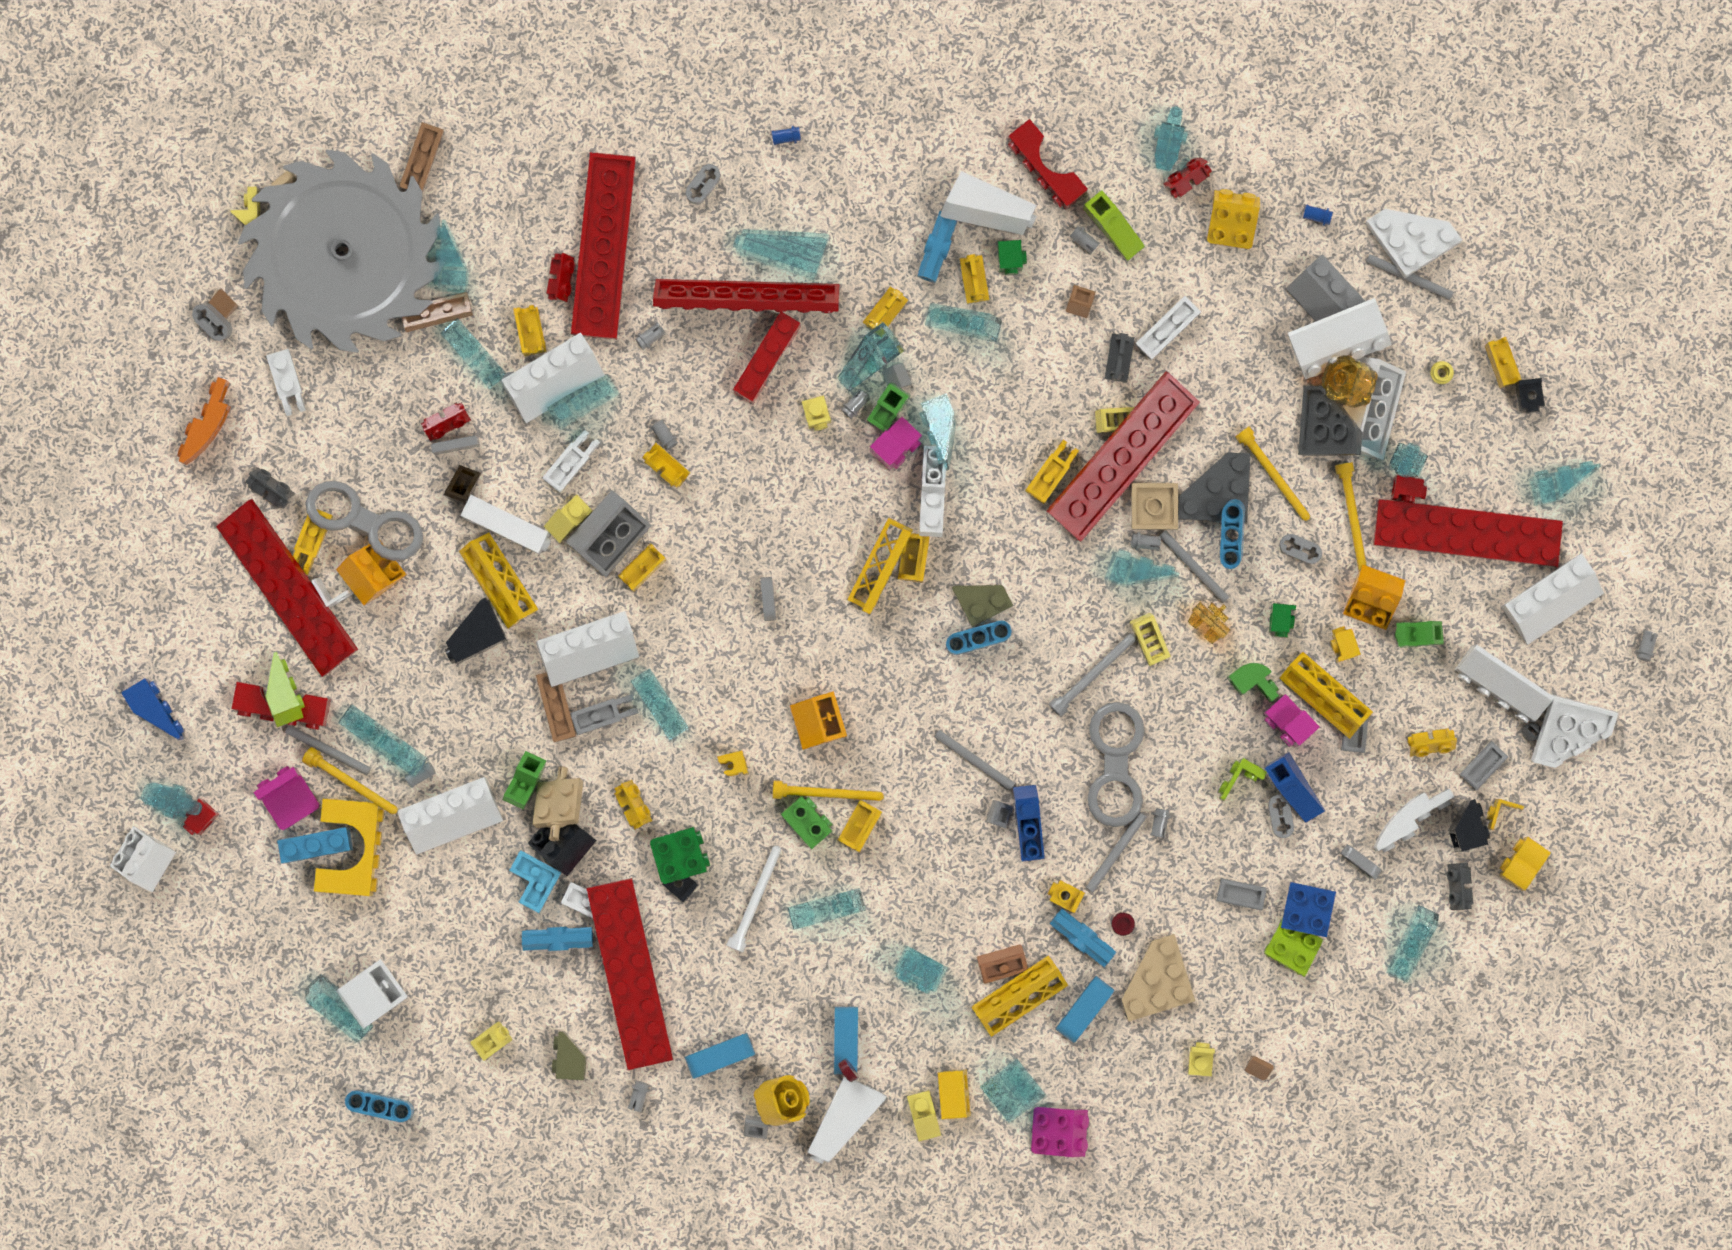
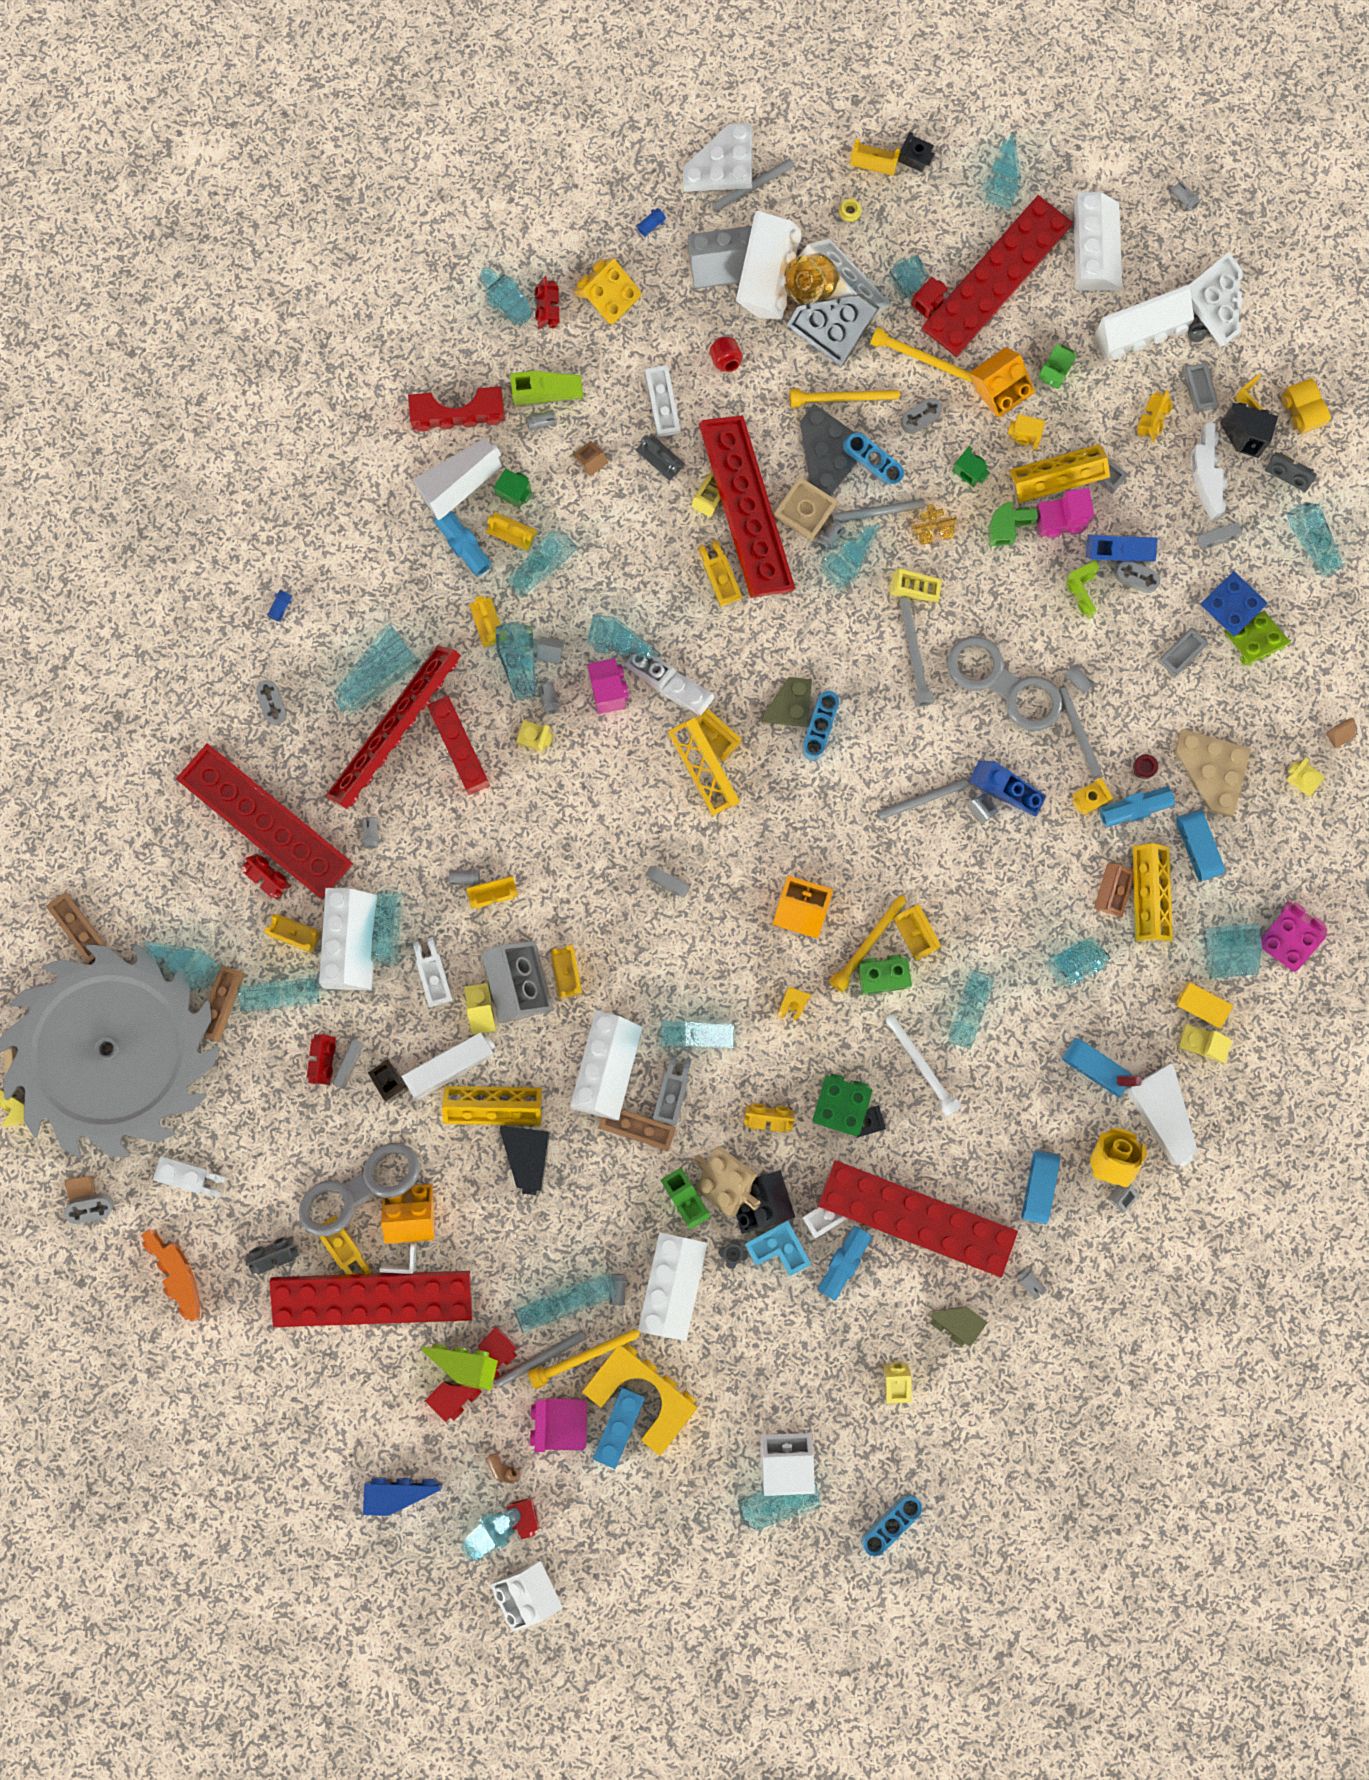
camera: 60 degrees left, 5 degrees down
(222, 777) = (502, 1472): none -> medium nougat arm
(504, 840) = (740, 1255): none -> dark grey plate
(888, 407) = (571, 670): bright green brick -> none
(1243, 353) = (726, 354): none -> red head

